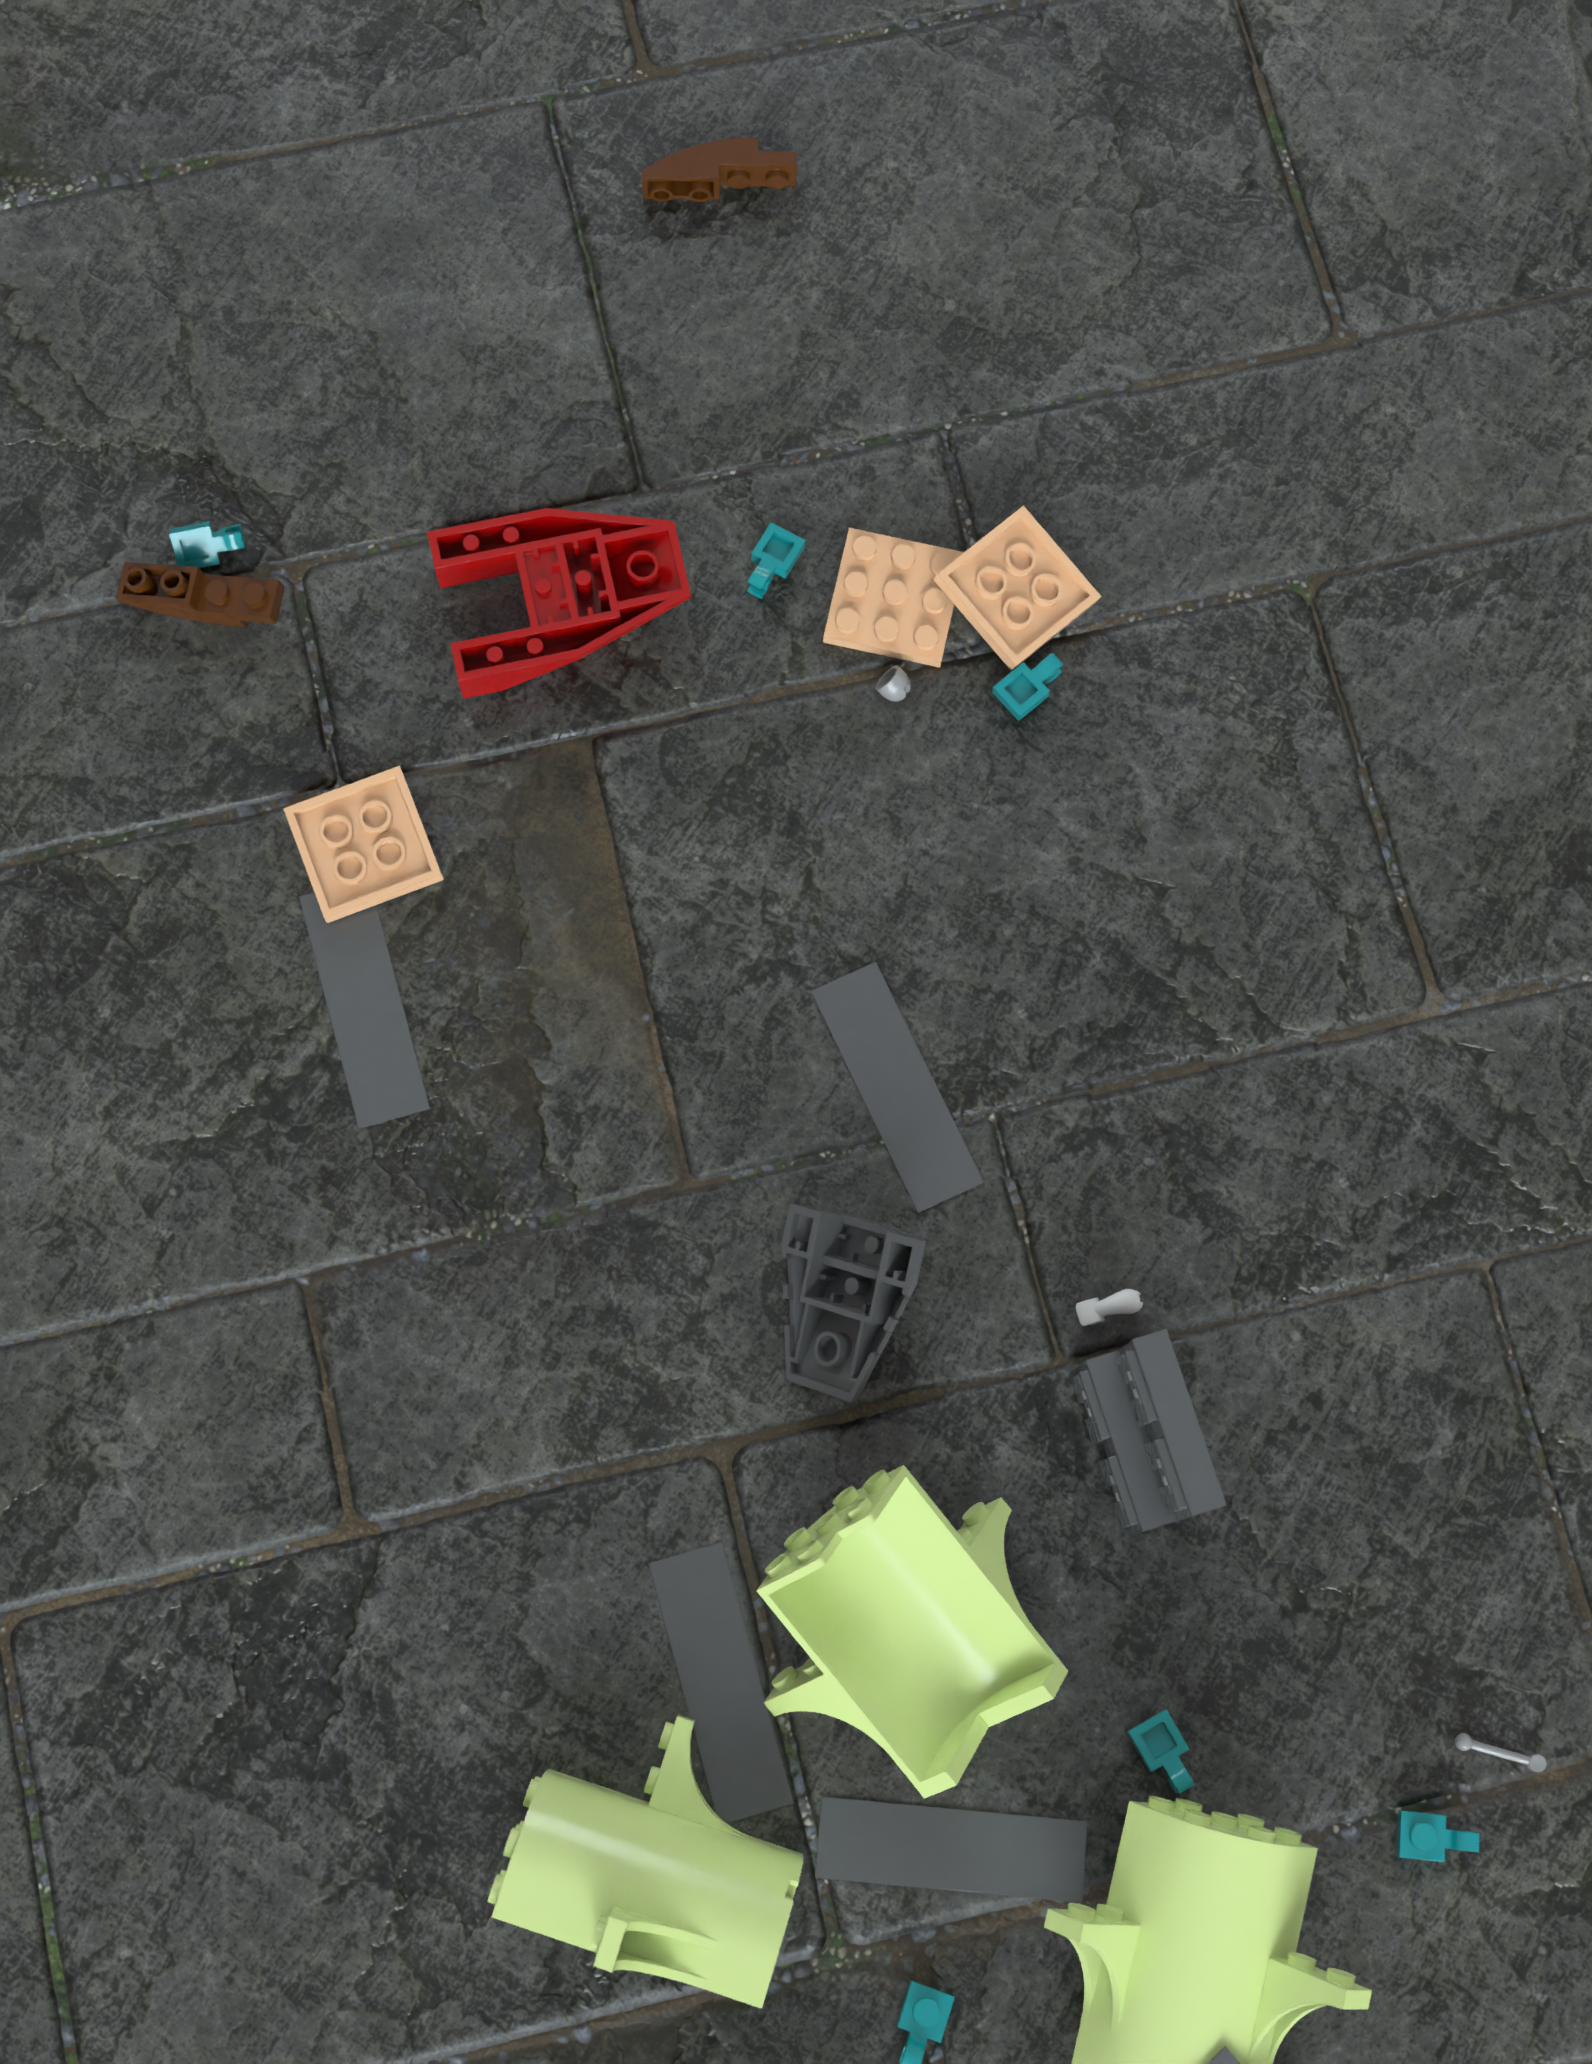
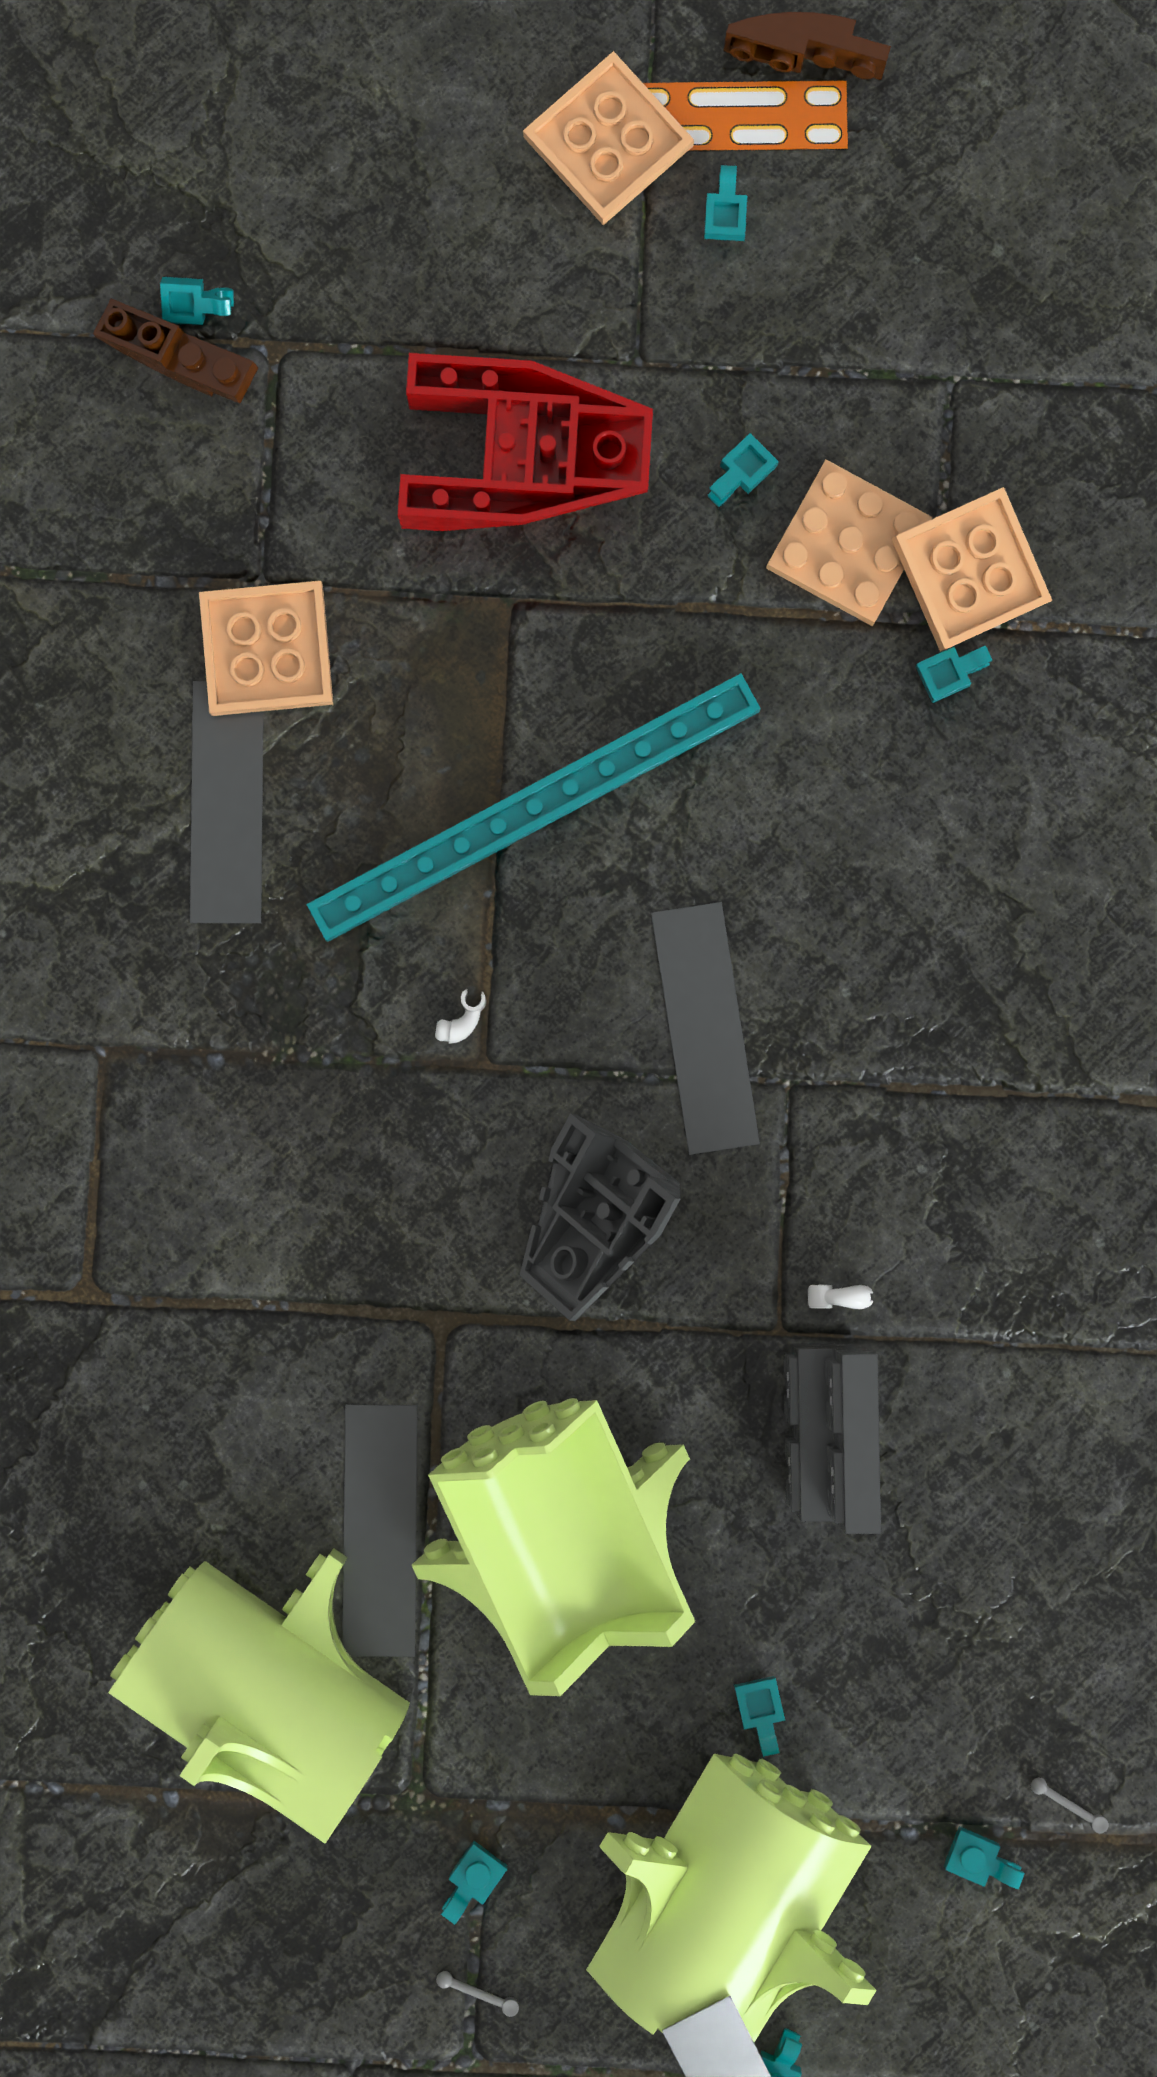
camera: 20 degrees right, 10 degrees up
(558, 299) = (608, 138): none -> light nougat plate
(658, 1152) = (461, 1028): none -> white arm
(662, 253) = (758, 113): none -> sticker
(664, 924) = (533, 807): none -> teal plate
(687, 333) = (726, 211): none -> teal plate
(894, 684) = (821, 632): light grey hinge -> none
(951, 1849) = (544, 1739): dark grey sticker -> none

